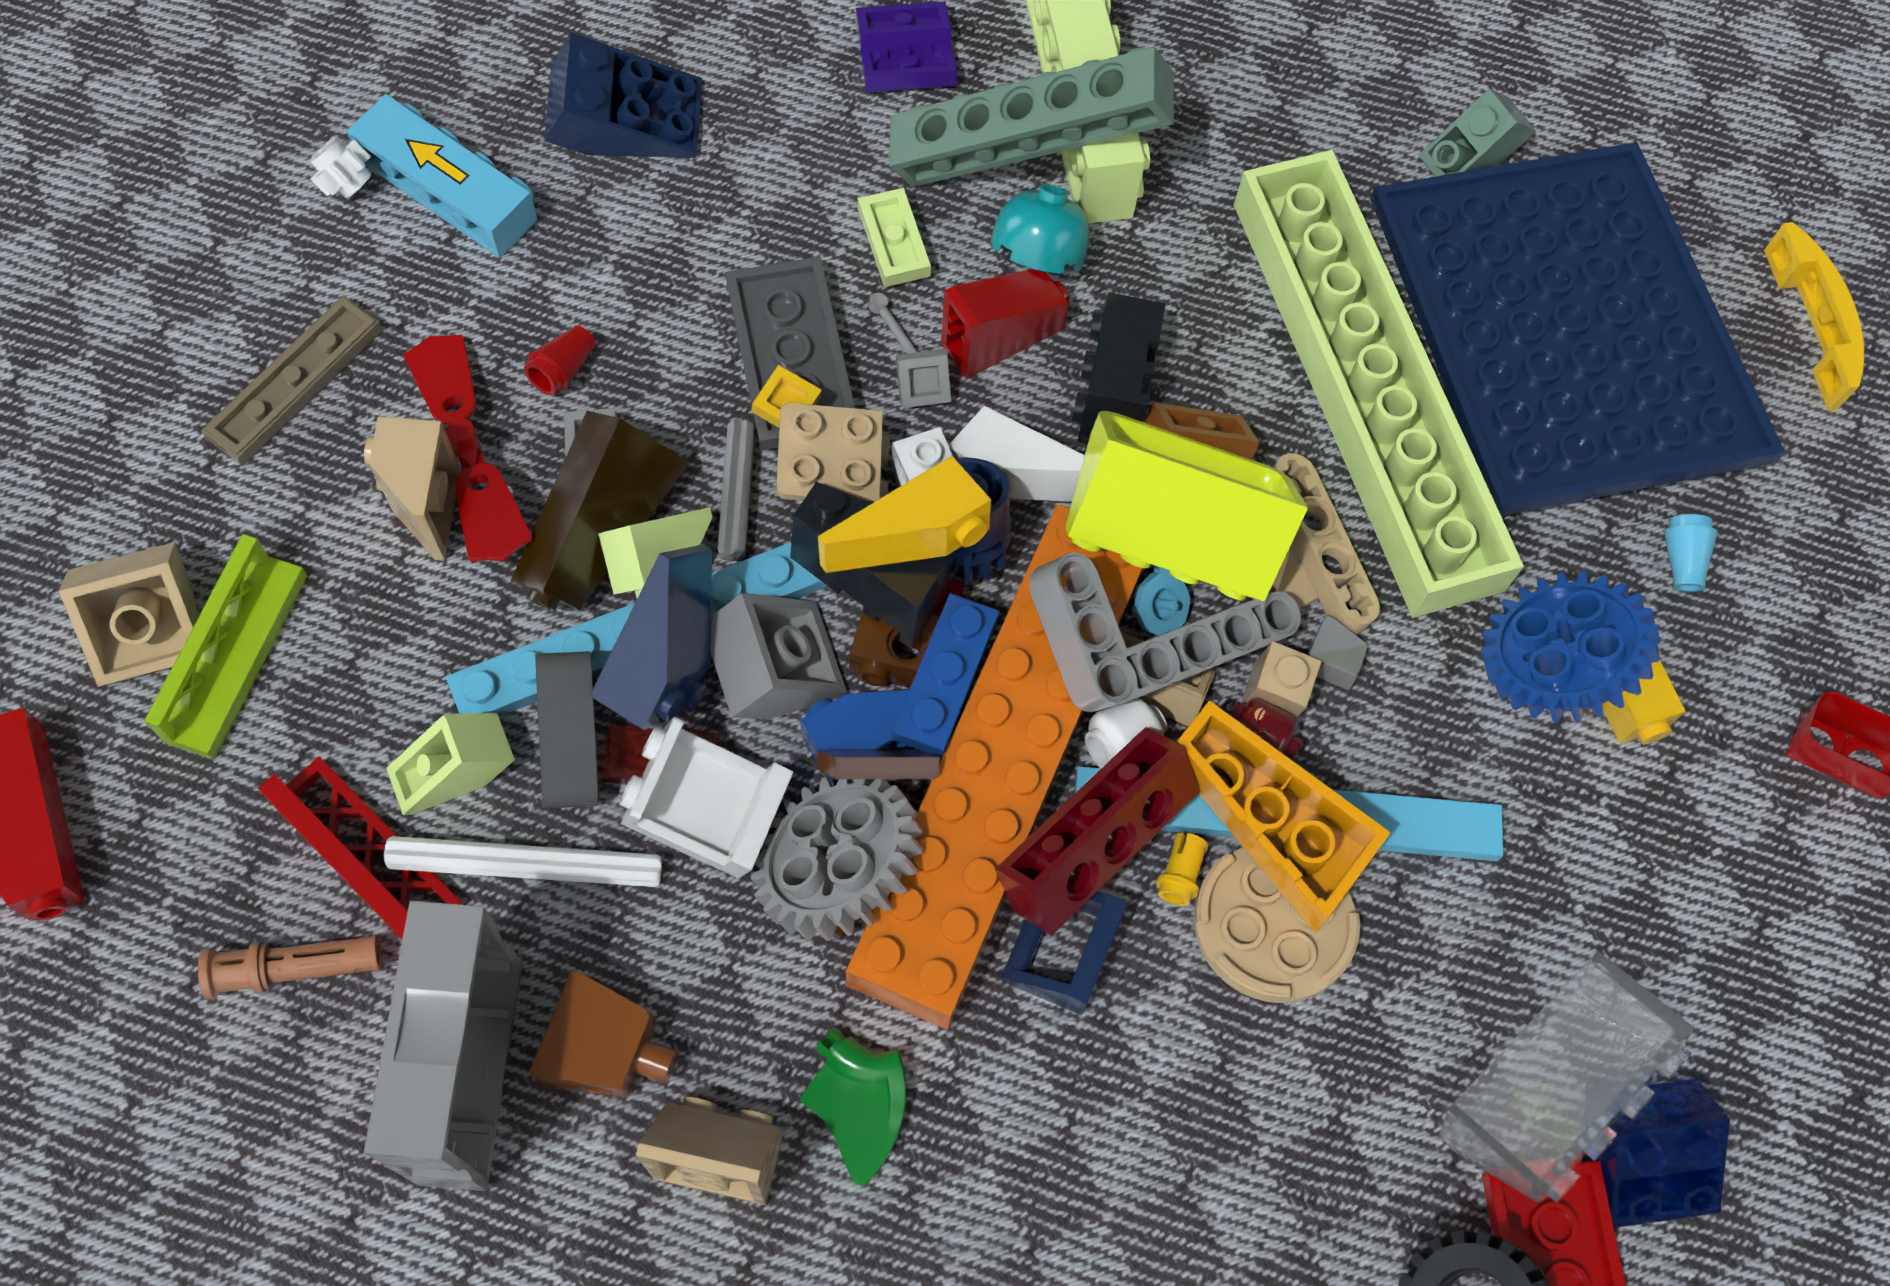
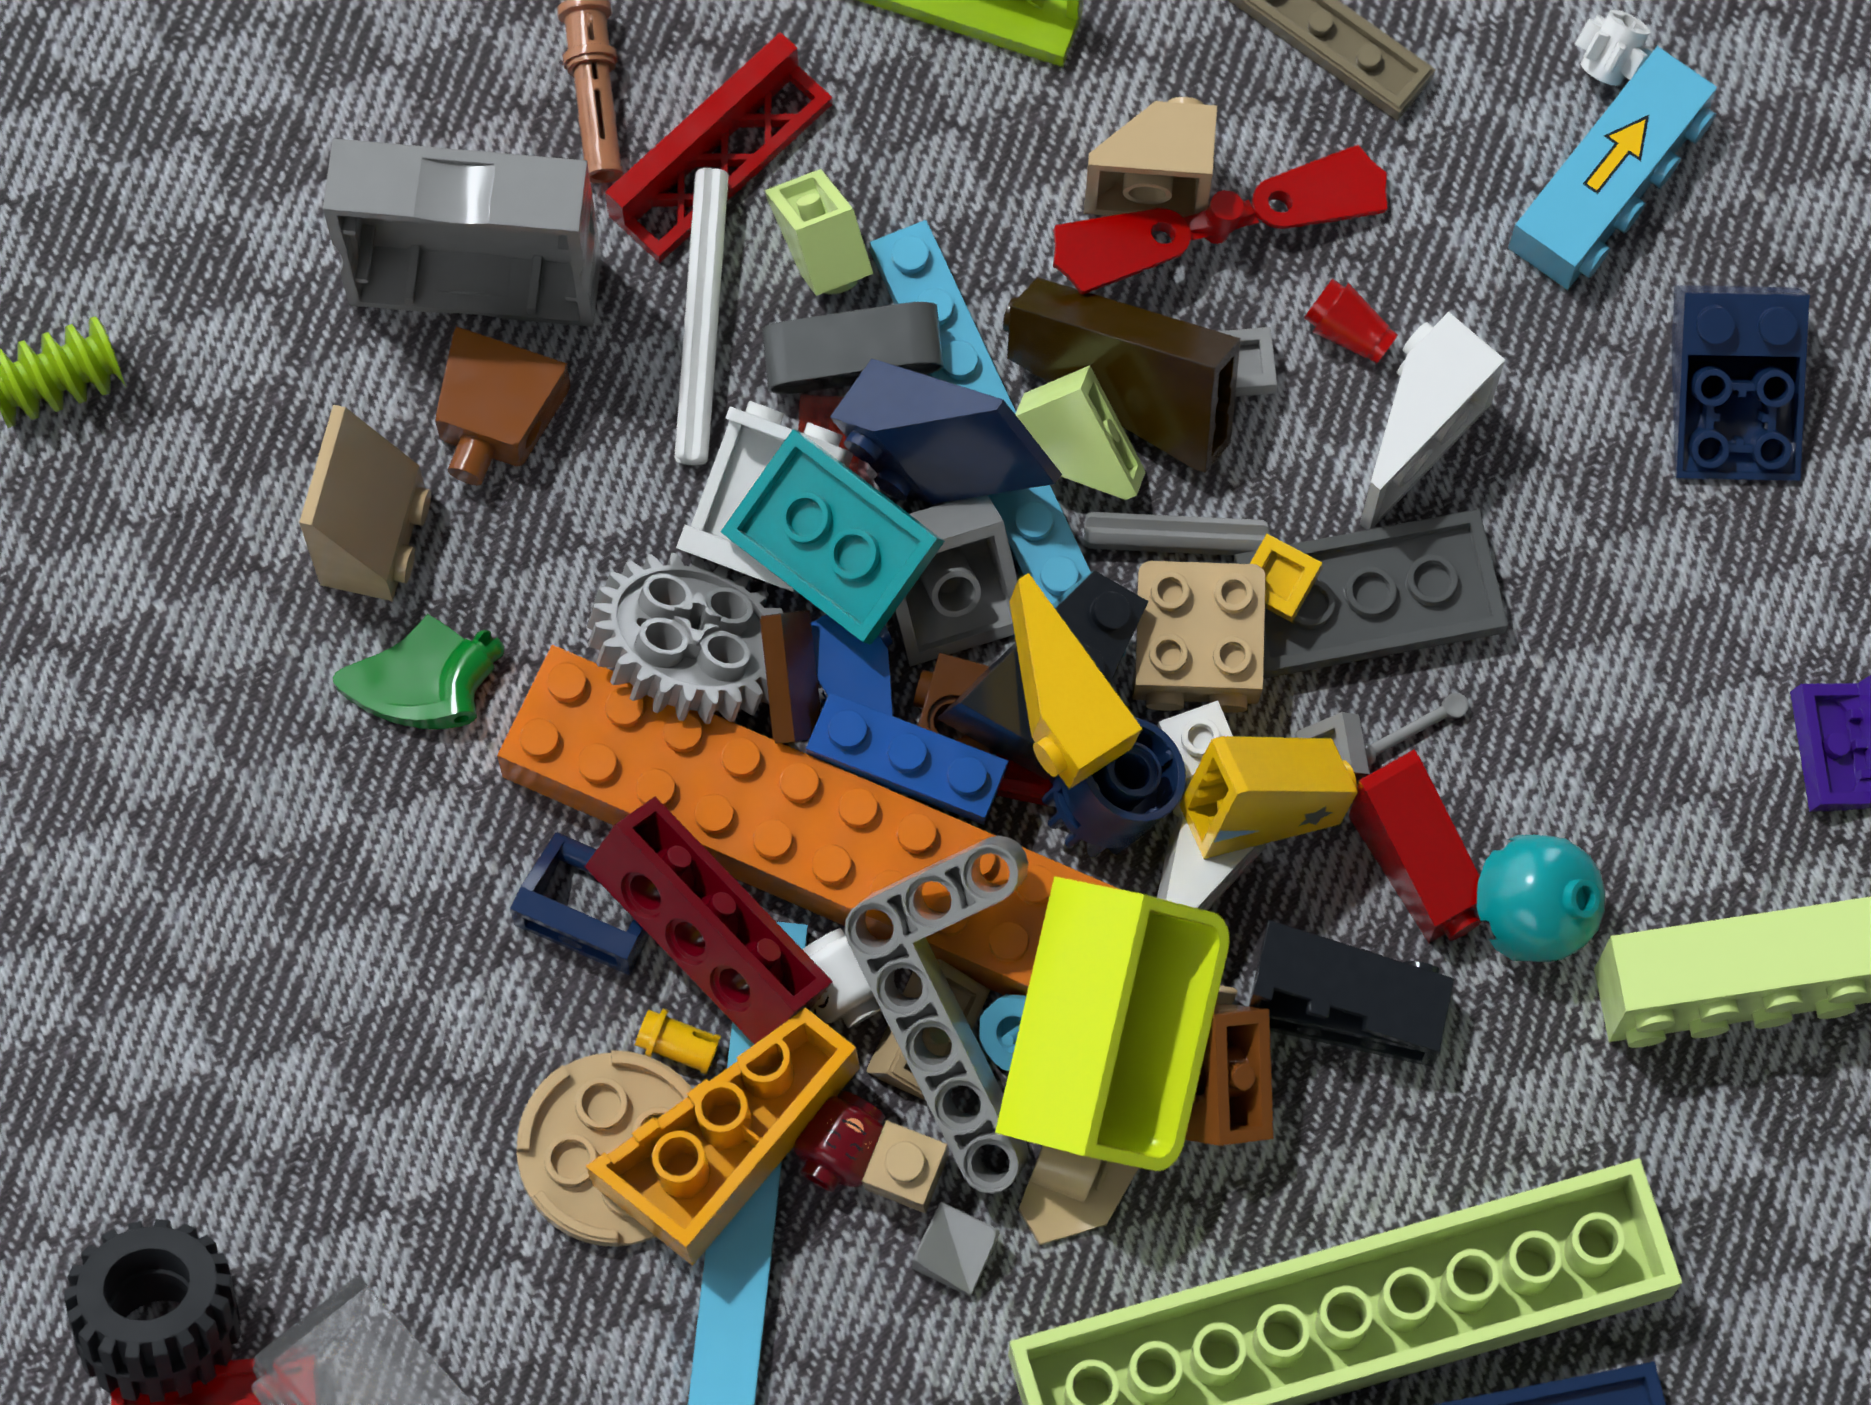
camera: 95 degrees right, 5 degrees up
(651, 298) = (1440, 394): none -> white slope
(756, 724) = (832, 536): none -> teal plate
(894, 237) = (1548, 721): yellowish green plate -> none
(980, 400) = (1265, 791): none -> yellow slope
(1033, 117) = (1687, 867): sand green brick -> none
(1333, 542) = (1106, 1236): tan beam -> none

